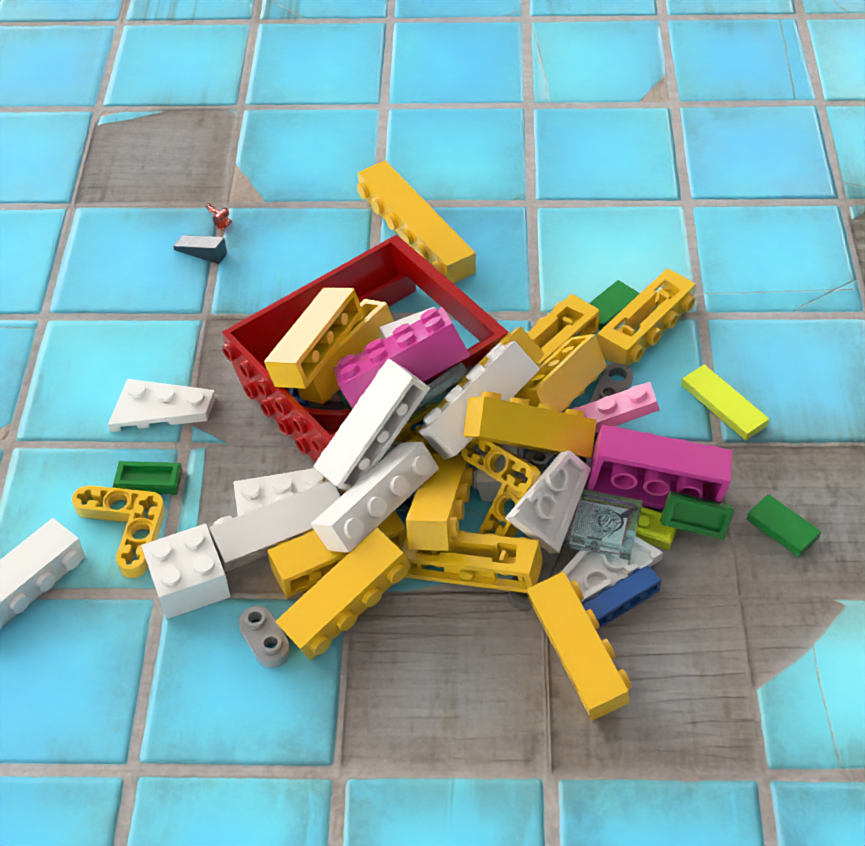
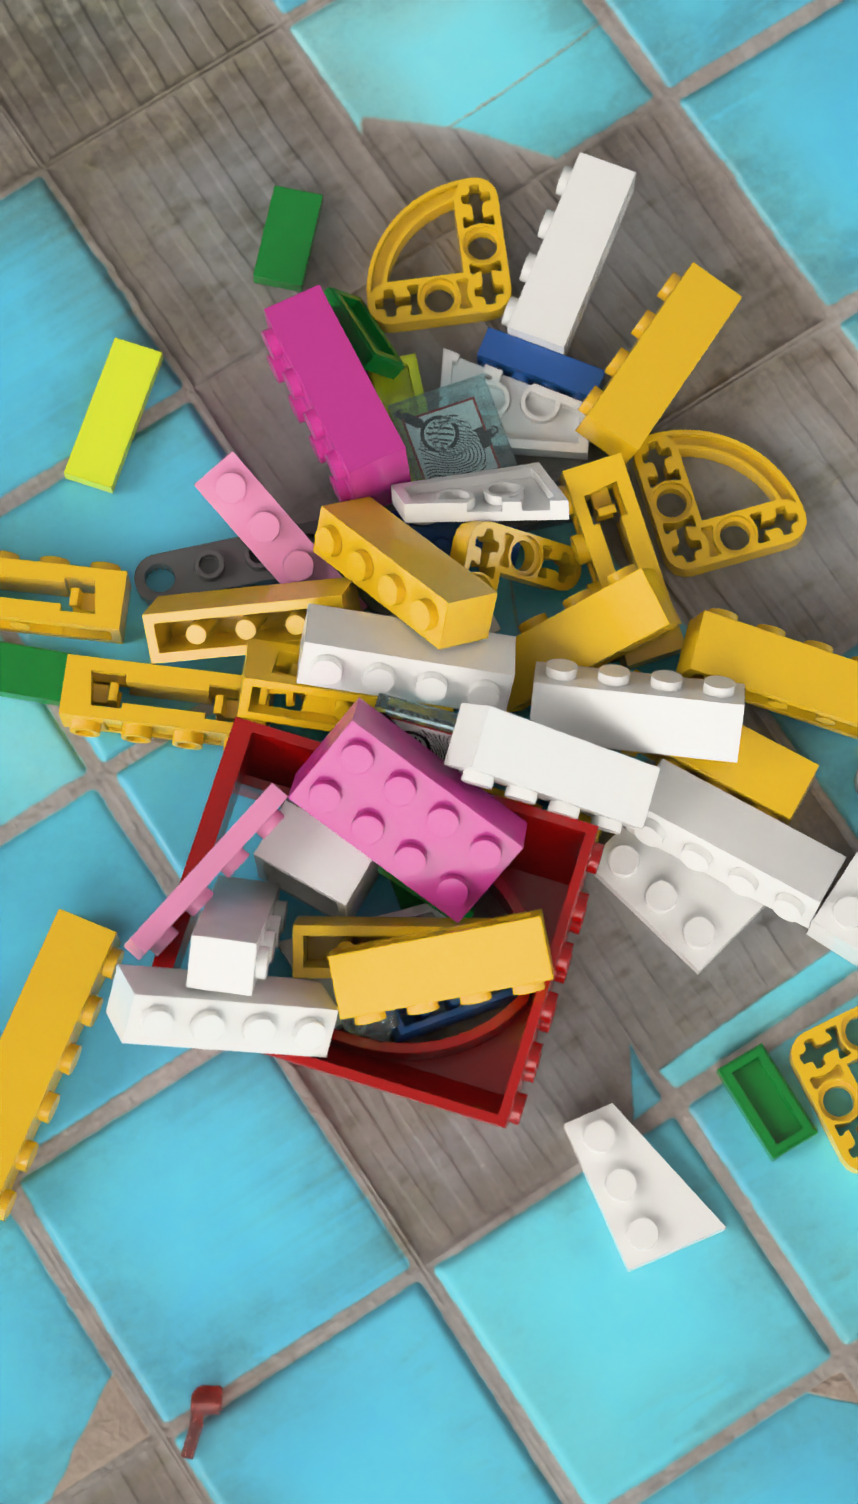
camera: 125 degrees left, 25 degrees up
(203, 247) = (291, 1387): black piece -> none
(369, 244) = (278, 1018): none -> white brick
(396, 270) = (236, 936): none -> white brick
(431, 266) = (193, 890): none -> bright pink plate
(460, 622) = (706, 533): none -> yellow beam
(681, 648) = (571, 254): none -> white brick
(698, 590) = (461, 286): none -> yellow beam

